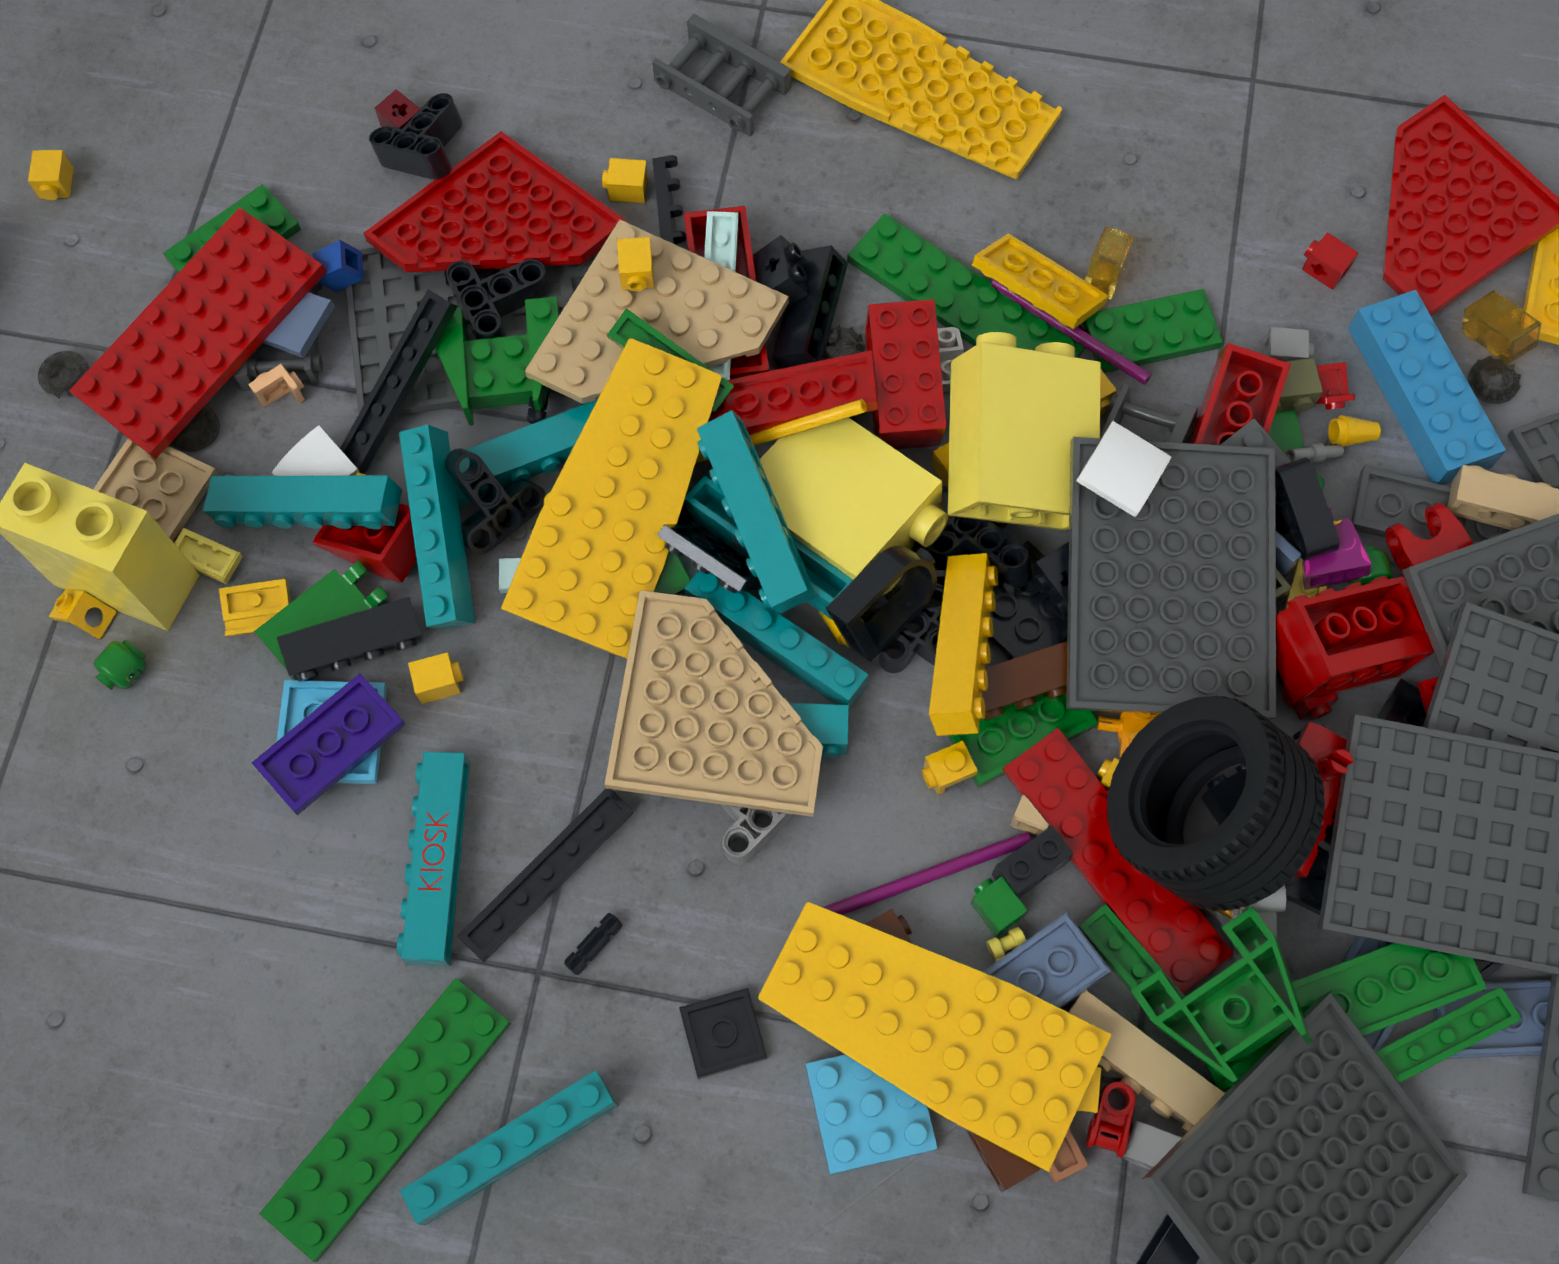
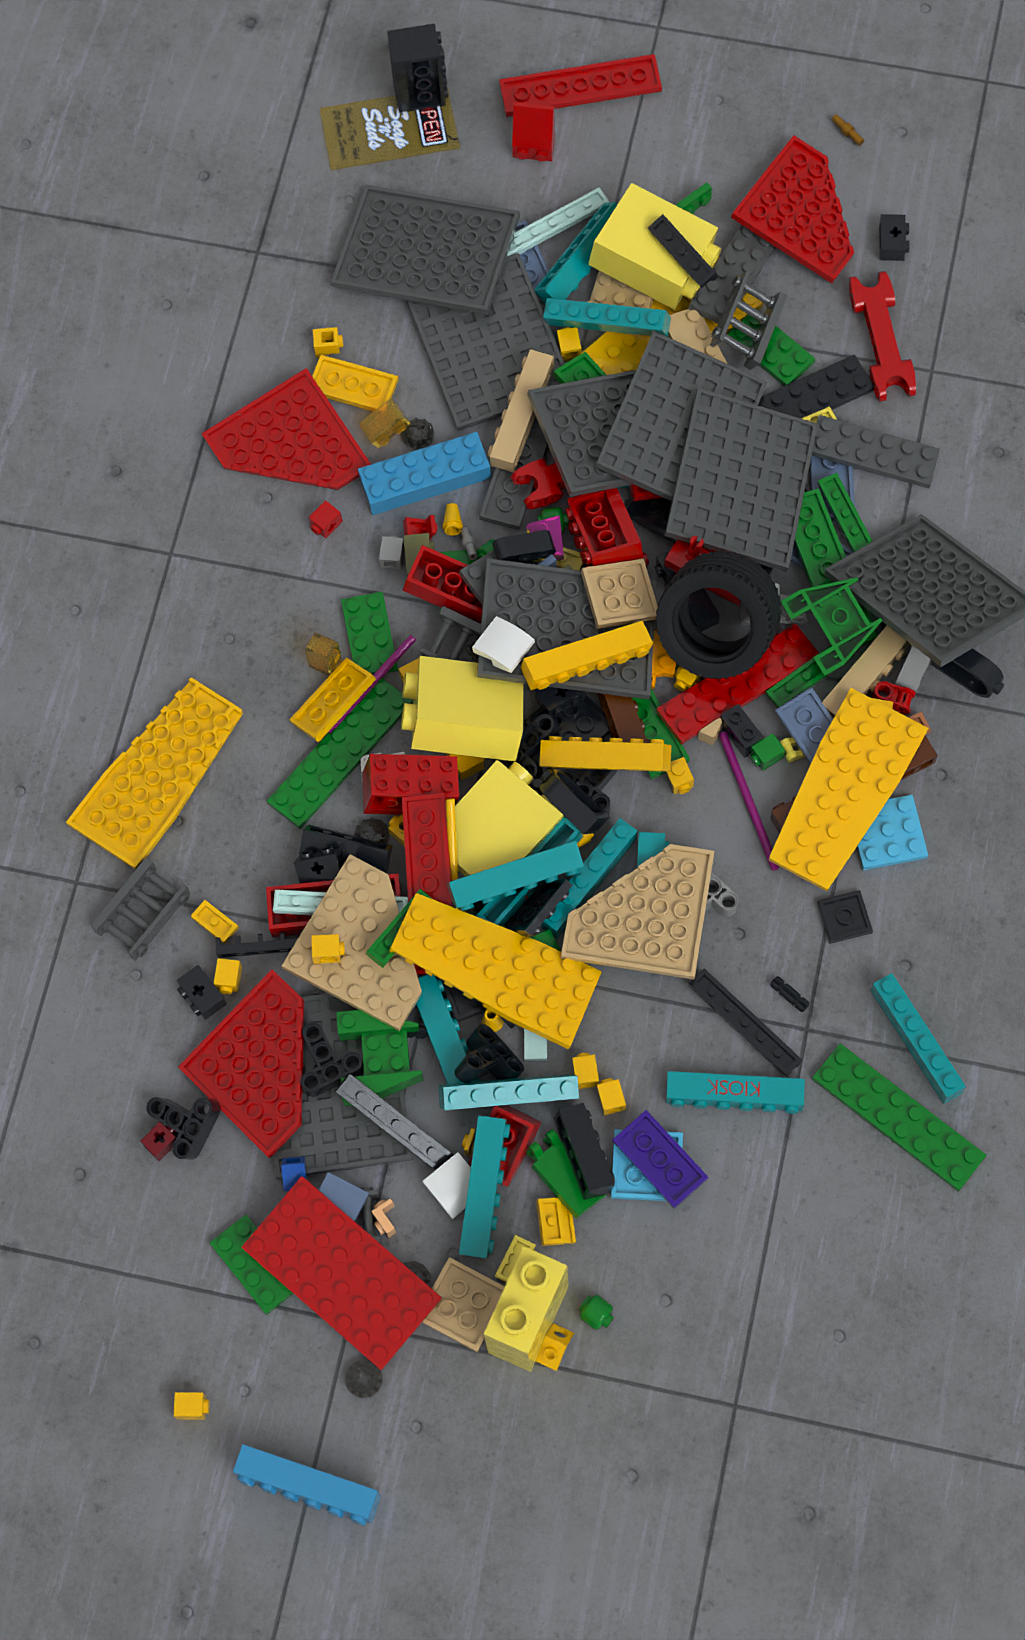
camera: 85 degrees left, 0 degrees up
(476, 641) = (586, 1070): none -> yellow brick
(592, 152) = (195, 981): none -> black brick
(705, 162) = (214, 921): none -> yellow plate
(1122, 599) = (586, 655): none -> yellow brick
(1242, 650) = (619, 593): none -> tan plate

